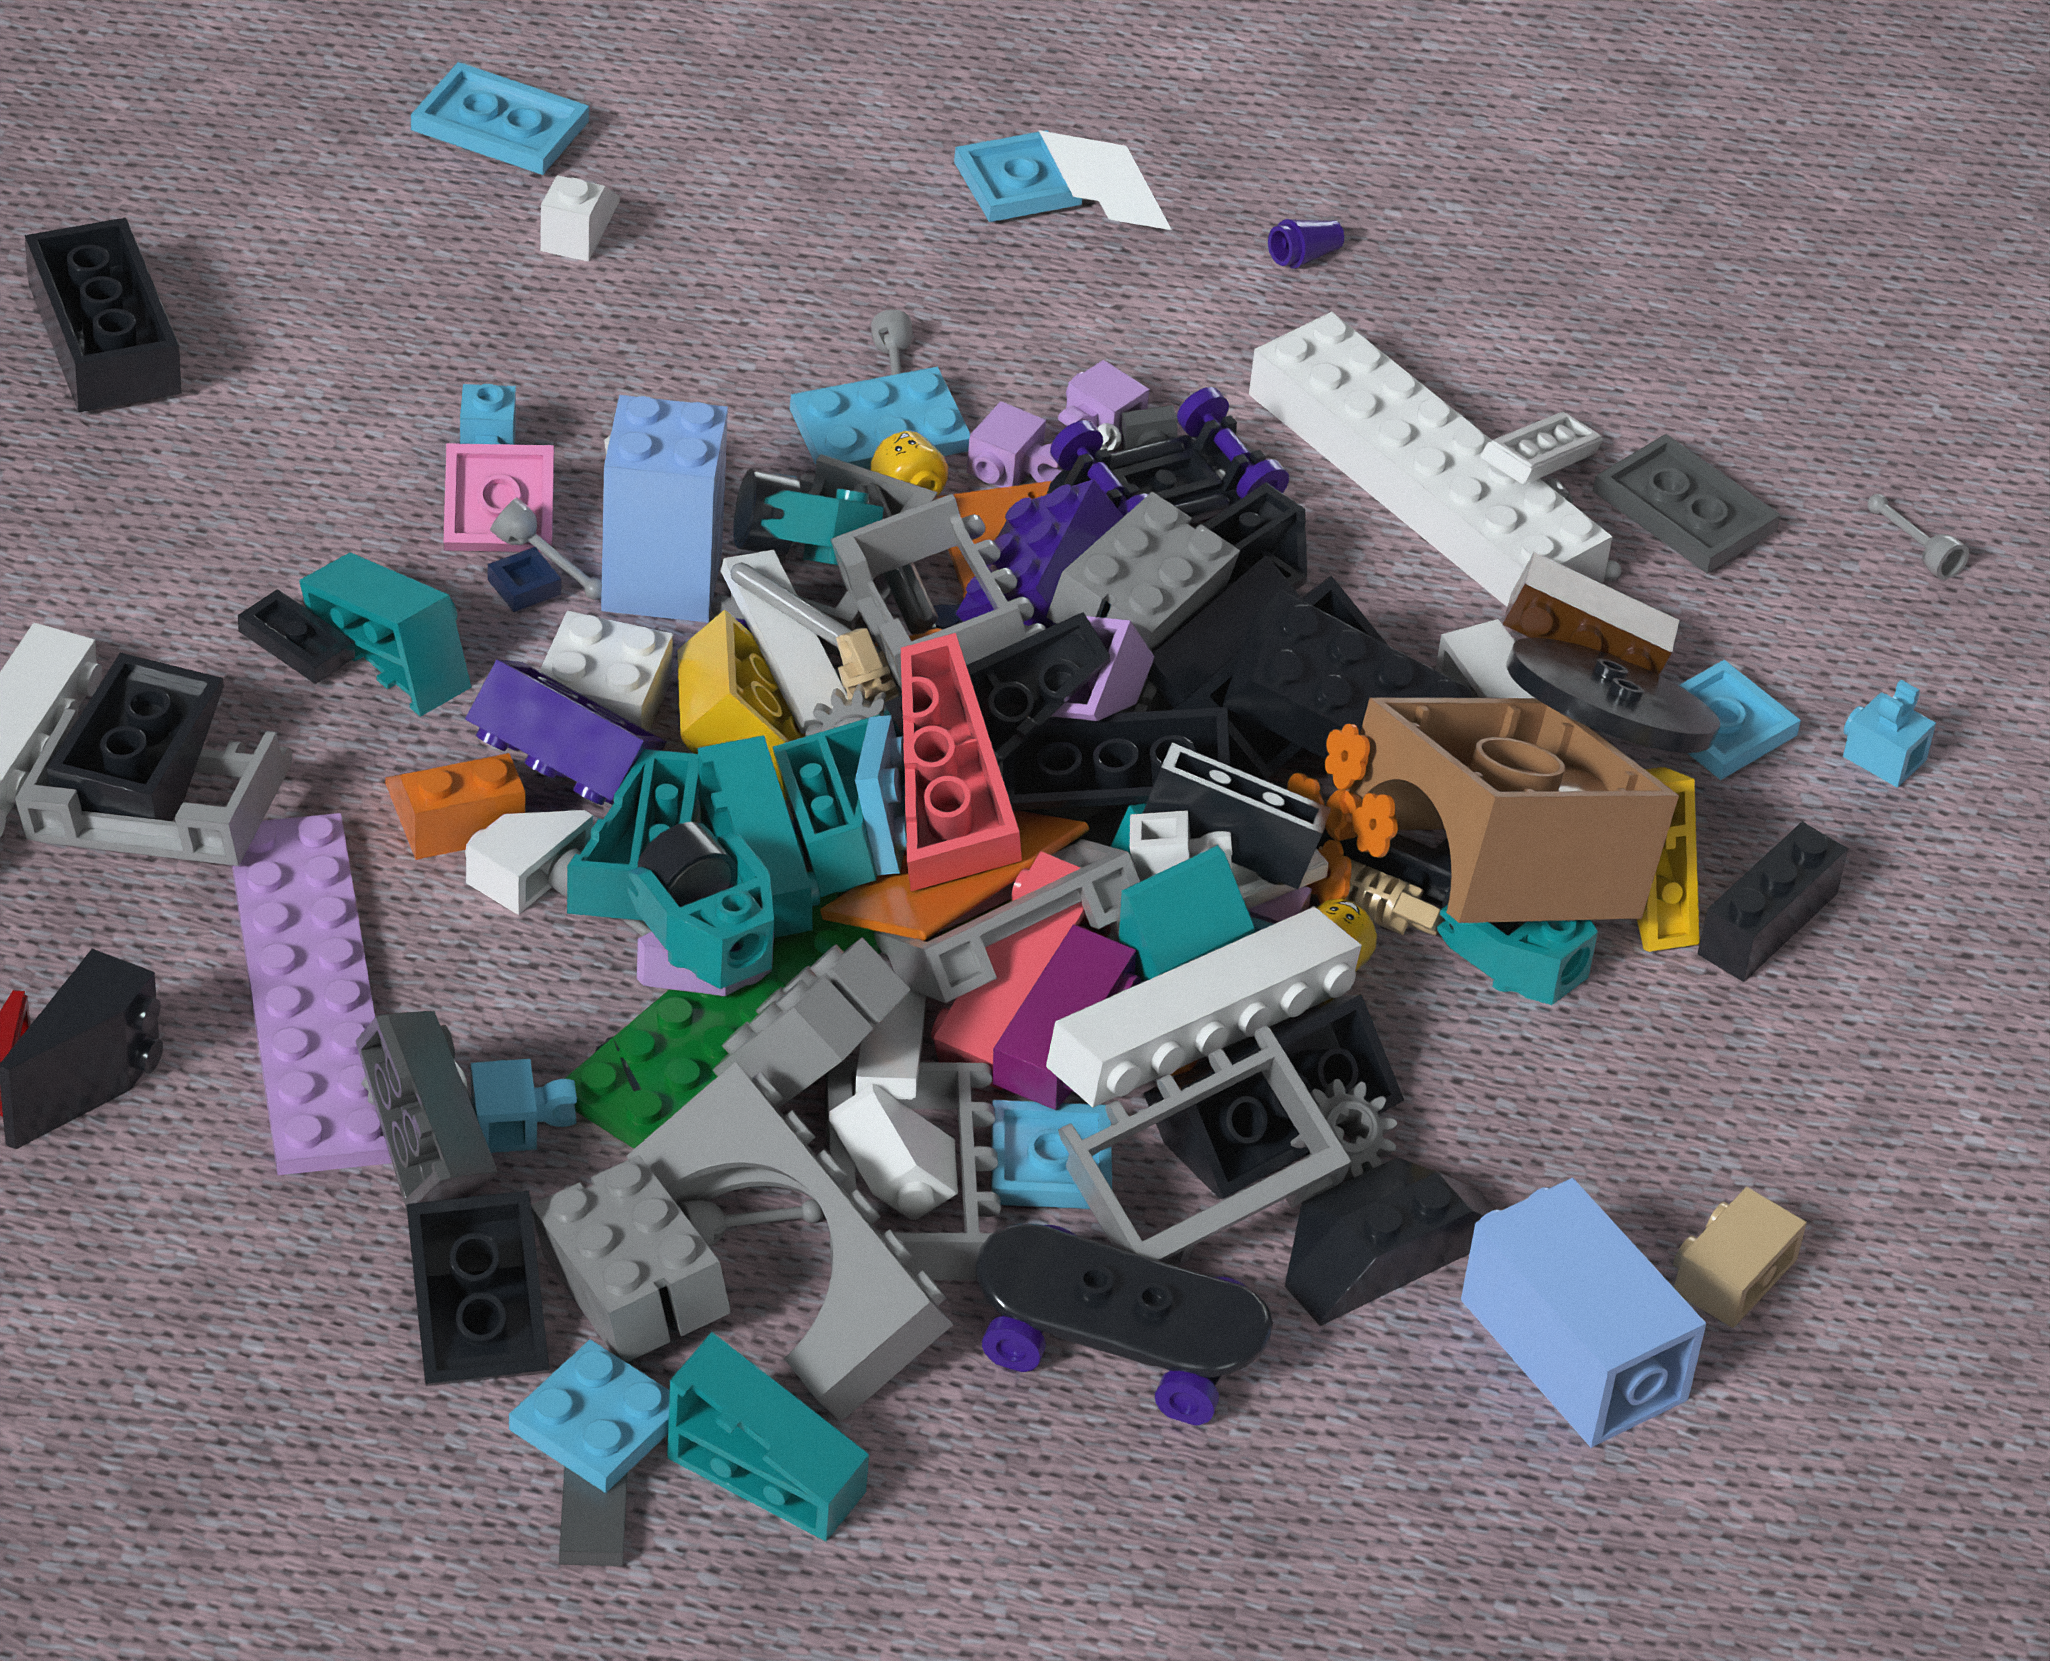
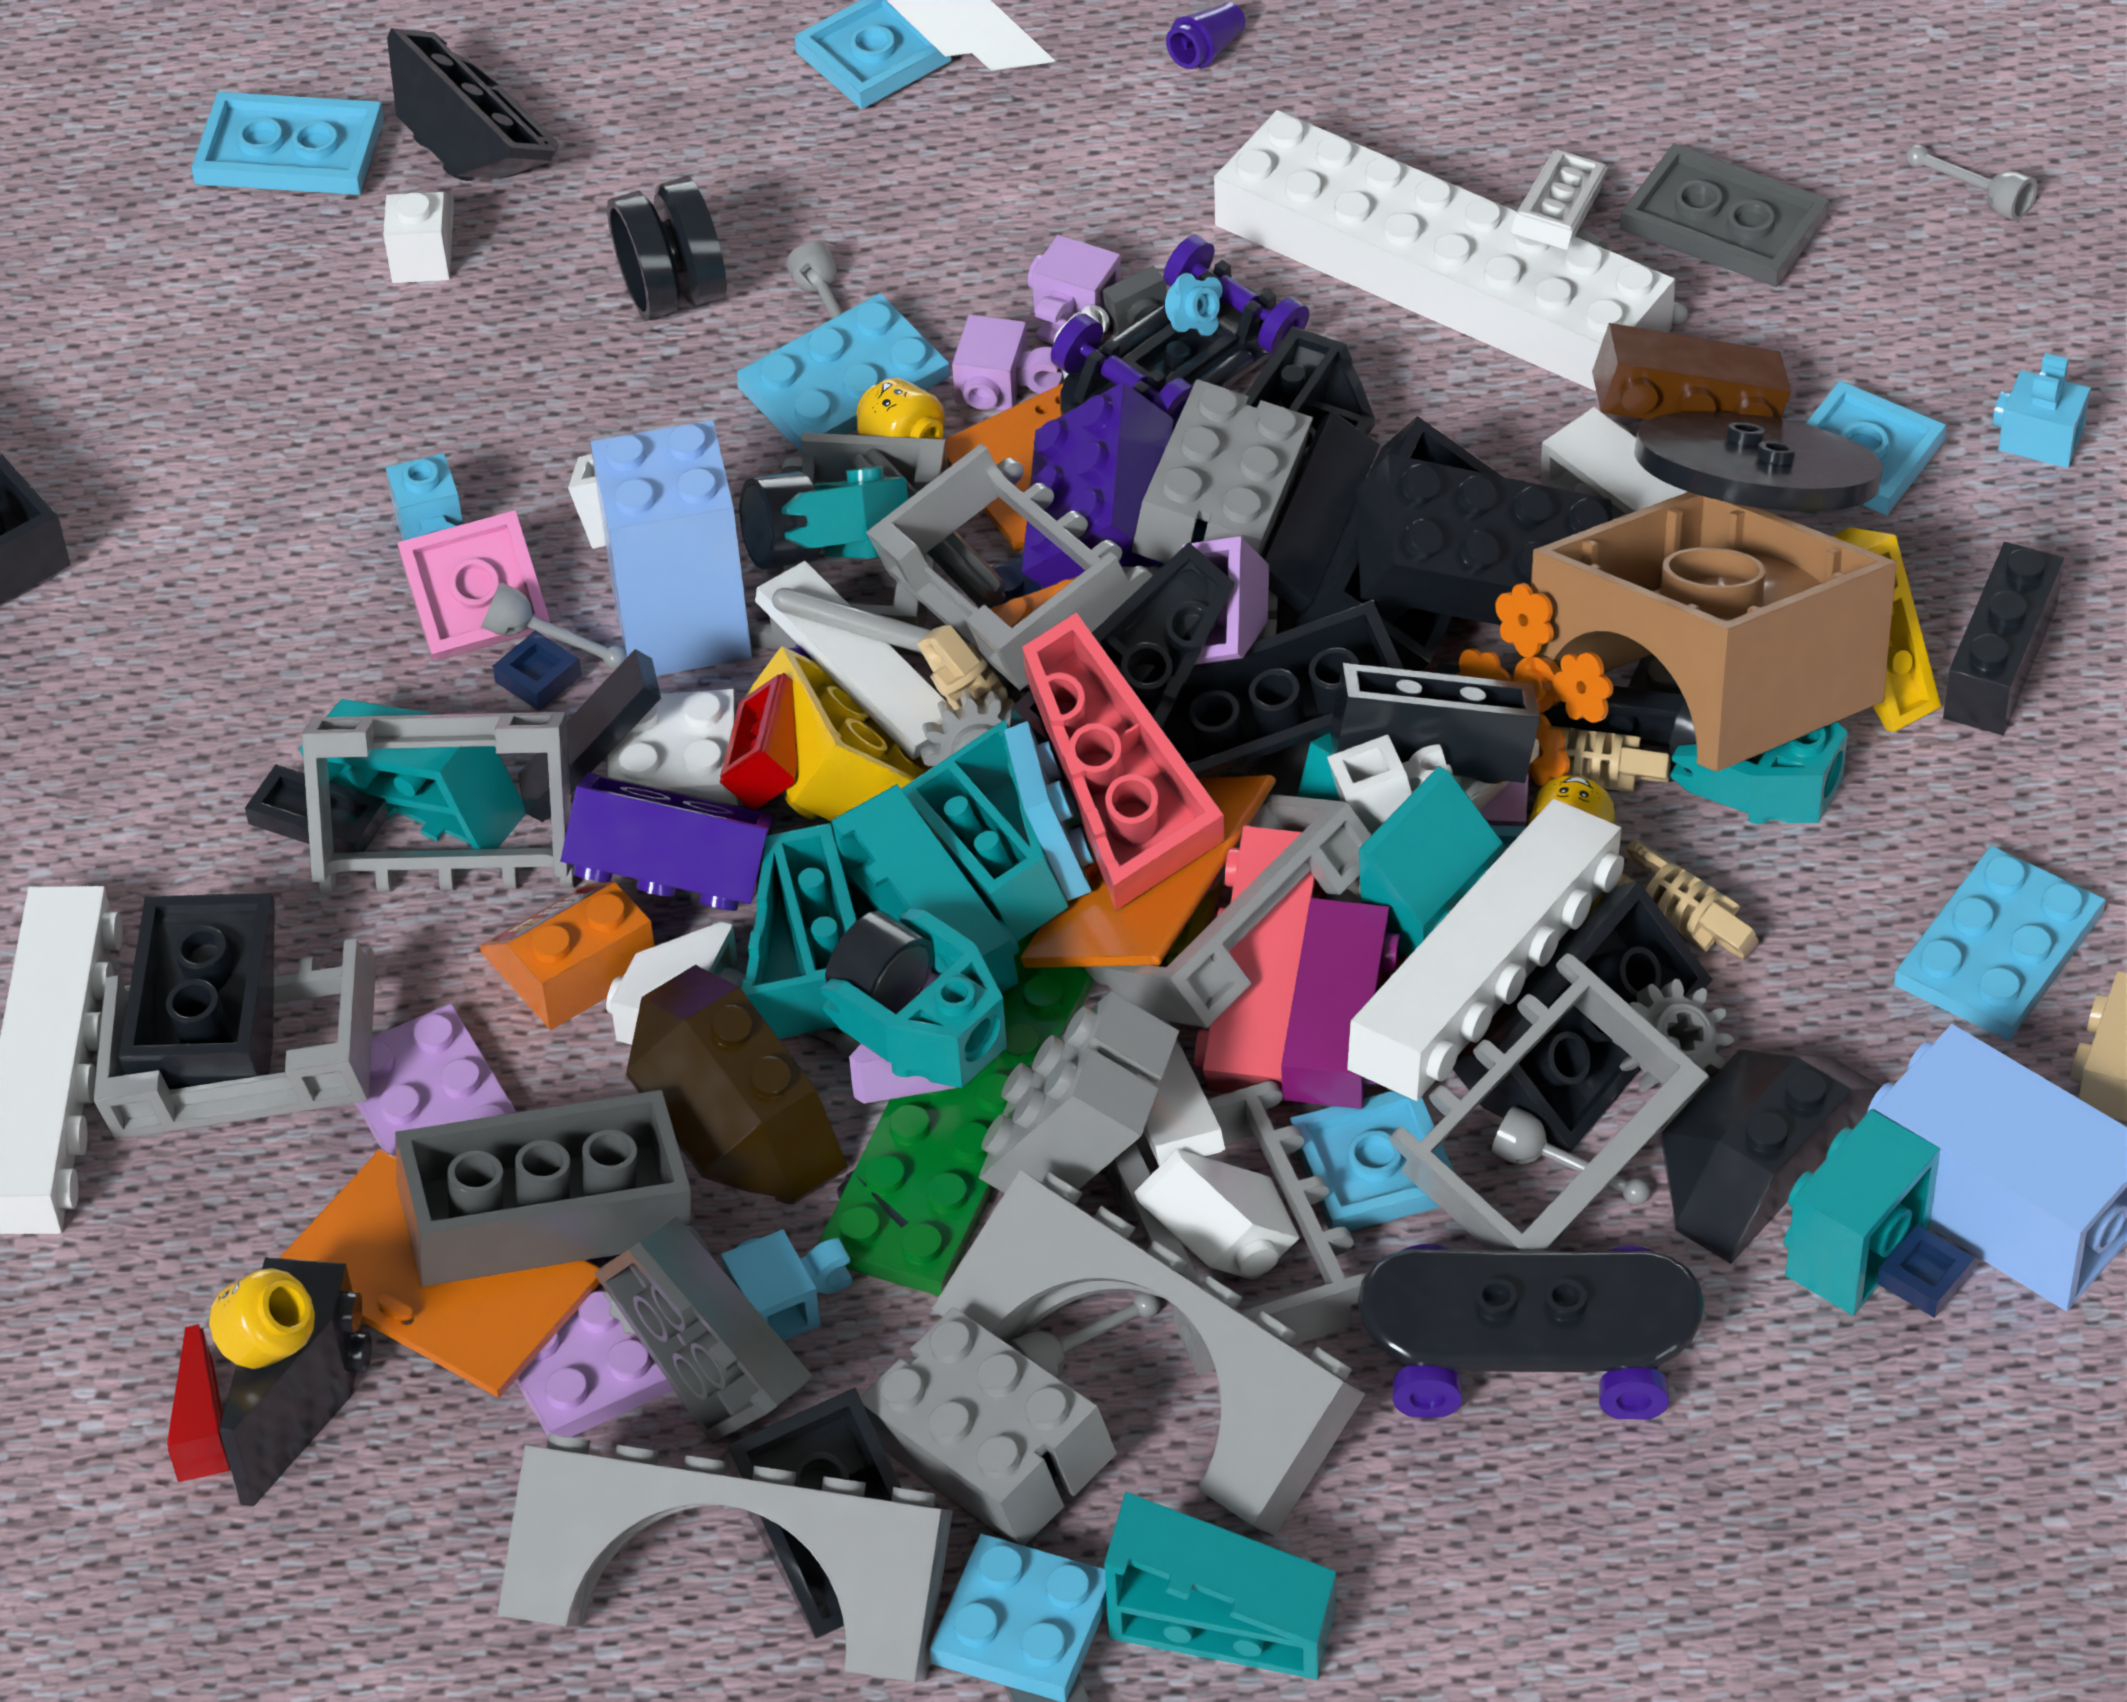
camera: 10 degrees left, 5 degrees up
(62, 987) = (262, 1318): none -> yellow head
(250, 1011) = (472, 1327): none -> orange container
(338, 961) = (539, 1186): none -> dark grey brick
(339, 574) = (359, 735): none -> light grey hinge
(491, 1324) = (585, 1507): none -> light grey arch
(534, 943) = (732, 1089): none -> dark brown wedge
(544, 629) = (595, 729): none -> black tile
(652, 130) = (461, 111): none -> black wedge
(675, 682) = (762, 744): none -> red slope
(771, 280) = (667, 248): none -> black wheel
(1179, 441) = (1194, 304): none -> medium azure plate
(1184, 1174) = (1523, 1140): none -> light grey hinge
(1408, 1034) = (1692, 905): none -> tan hinge
(1439, 1309) = (1859, 1209): none -> teal brick
(1480, 1377) = (1925, 1270): none -> dark blue plate
(1663, 1142) = (1999, 942): none -> medium azure plate

